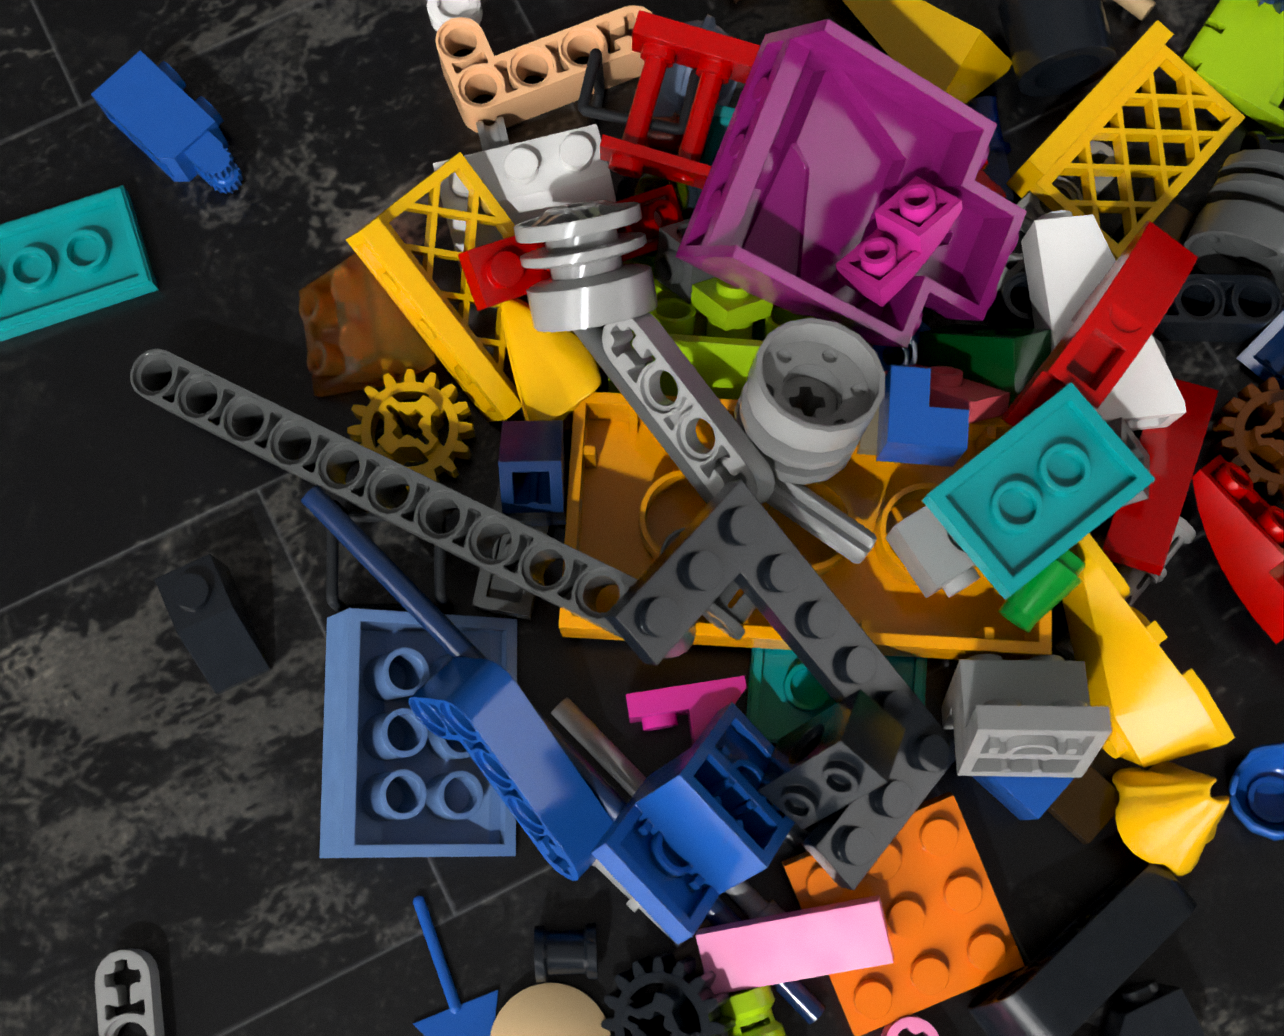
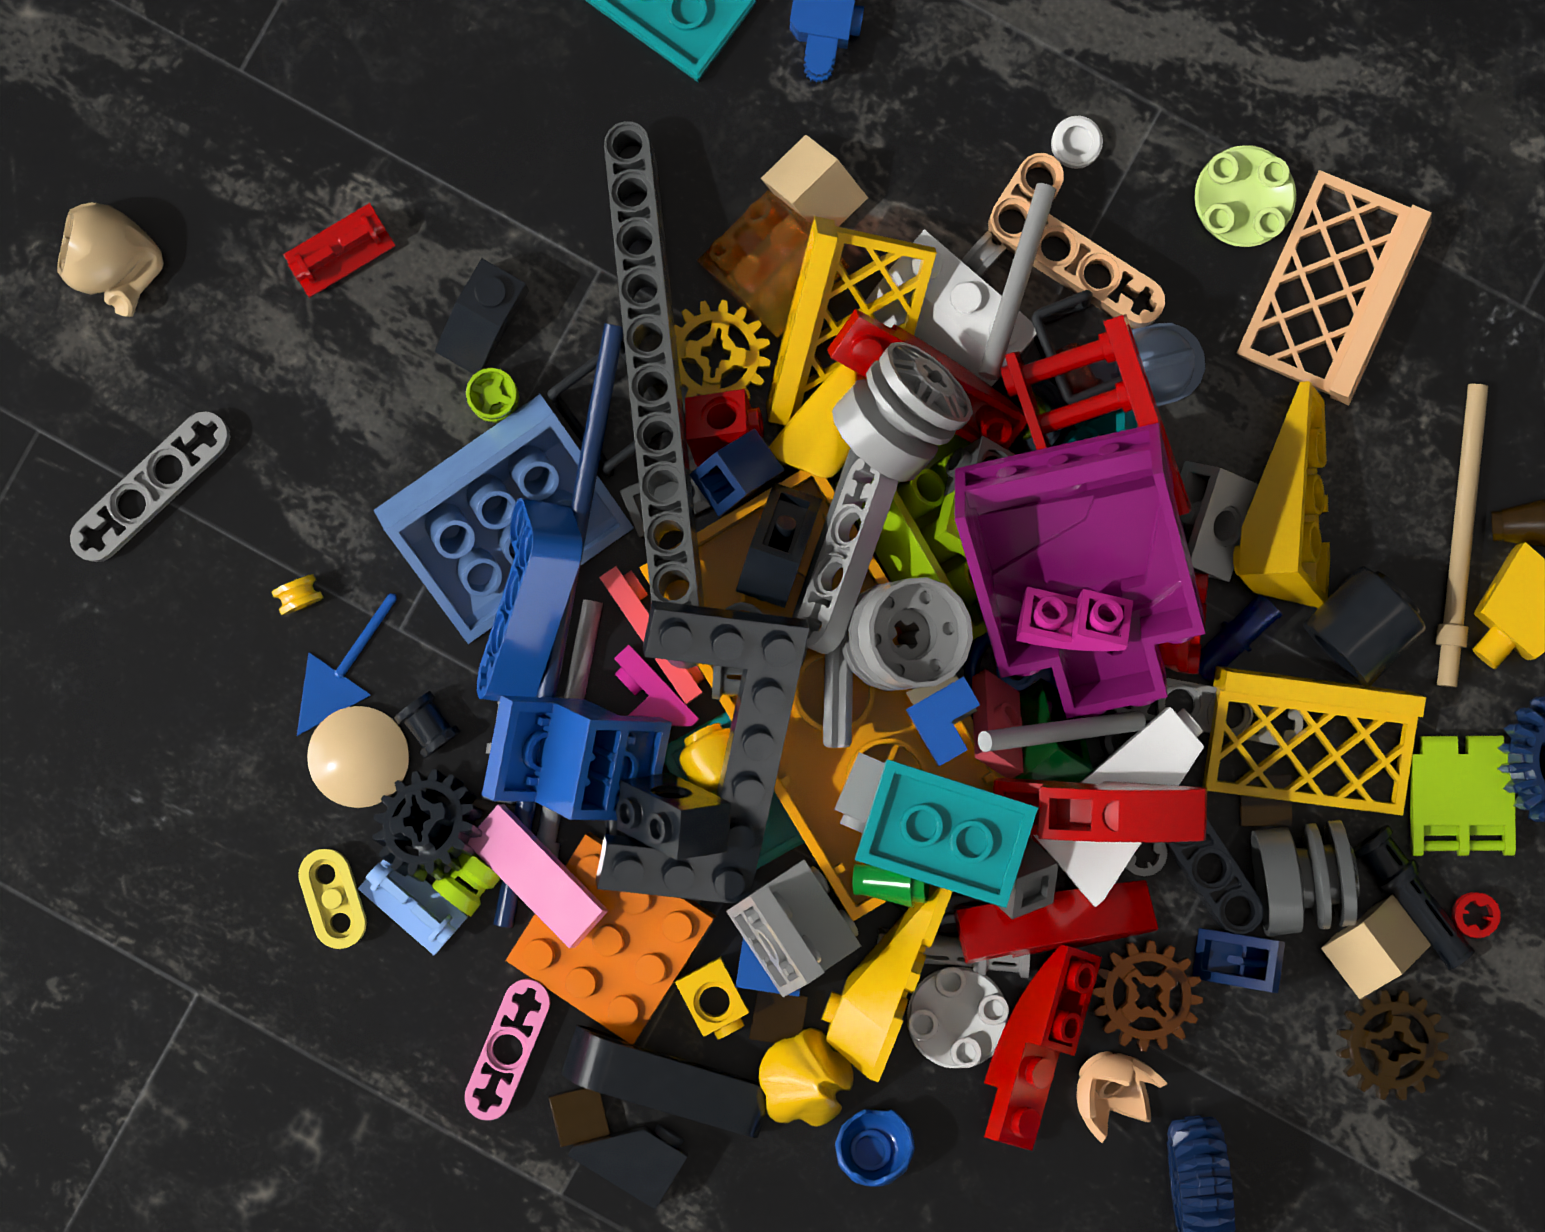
camera: 55 degrees right, 10 degrees up
(53, 717) = (339, 250): none -> red hinge
(287, 656) = (486, 389): none -> lime wheel
(314, 237) = (814, 183): none -> tan piece
(346, 995) = (297, 594): none -> yellow bush
(471, 462) = (711, 413): none -> red brick
(540, 111) = (1017, 281): none -> light grey bar
(576, 666) = (627, 593): none -> coral plate
(634, 473) = (778, 545): none -> black slope
(789, 690) = (704, 756): none -> yellow head
(995, 329) = (1061, 731): none -> light grey bar
(1001, 856) = (713, 975): none -> yellow brick
(1202, 624) = (957, 1017): none -> white dish

